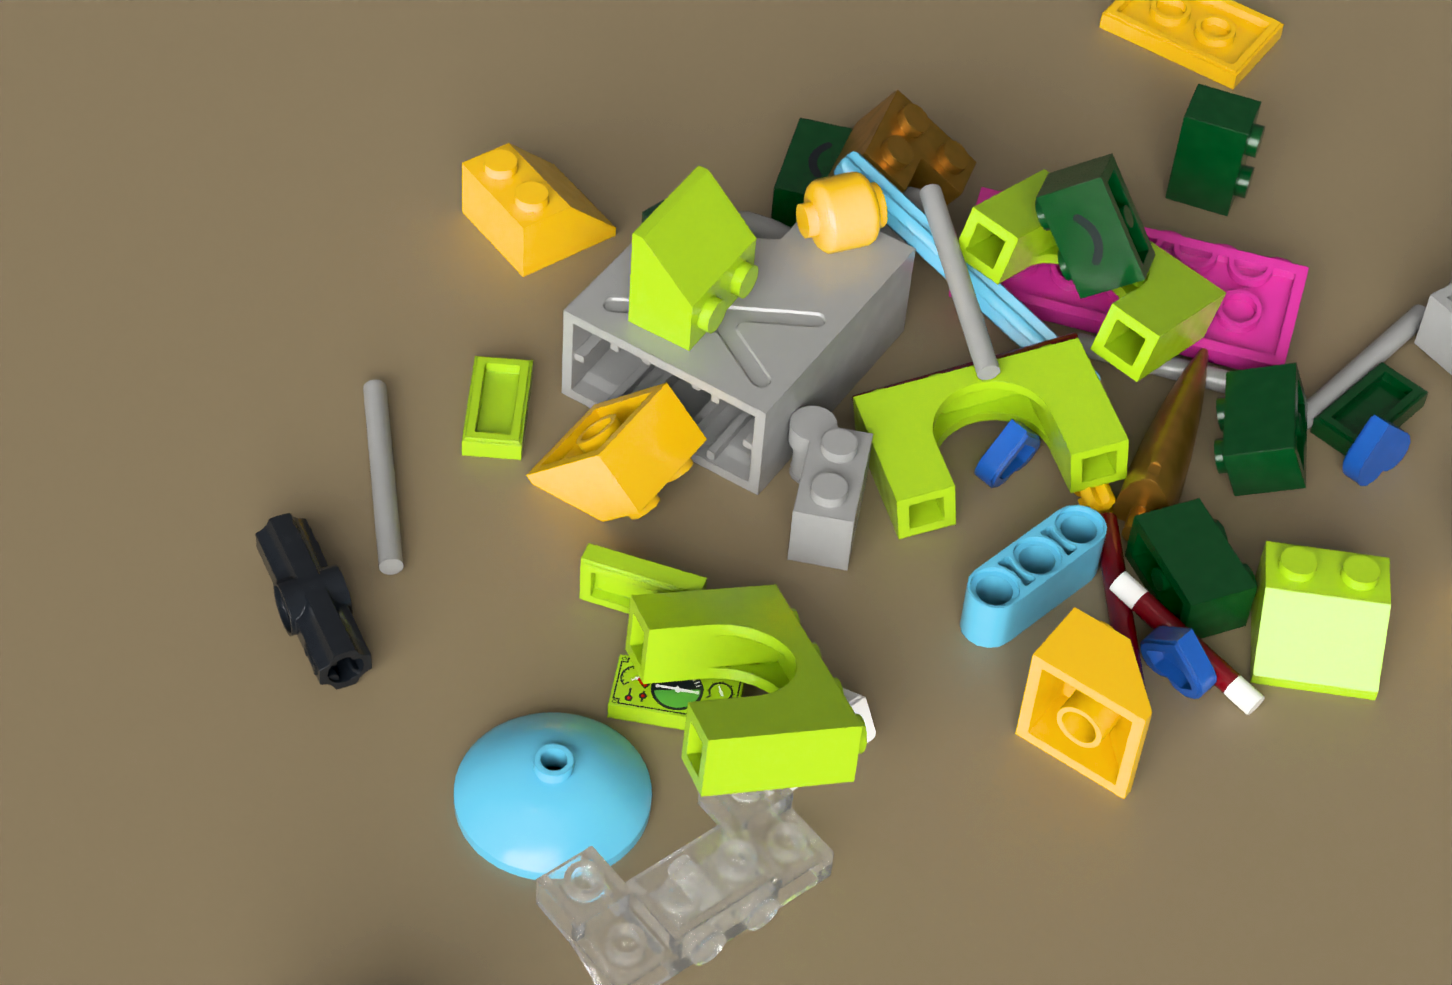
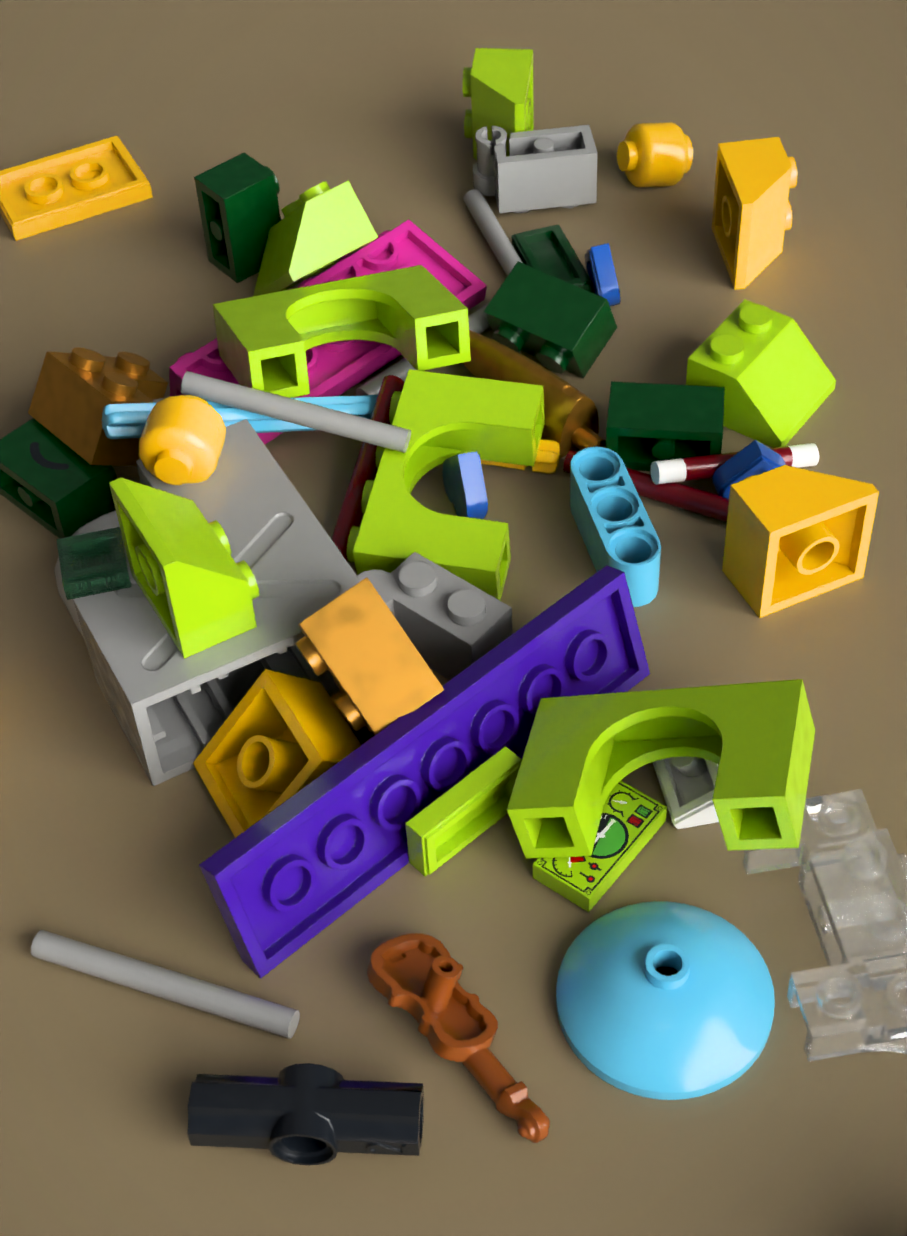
camera: 55 degrees left, 0 degrees up
(470, 625) = (423, 980): none -> dark orange piece
(497, 408) = (141, 844): lime tile -> none
(551, 504) = (348, 825): none -> dark purple plate
(706, 440) = (368, 657): none -> brick
(1094, 226) = (326, 287): dark green brick -> none
(1215, 208) = (313, 236): none -> slope

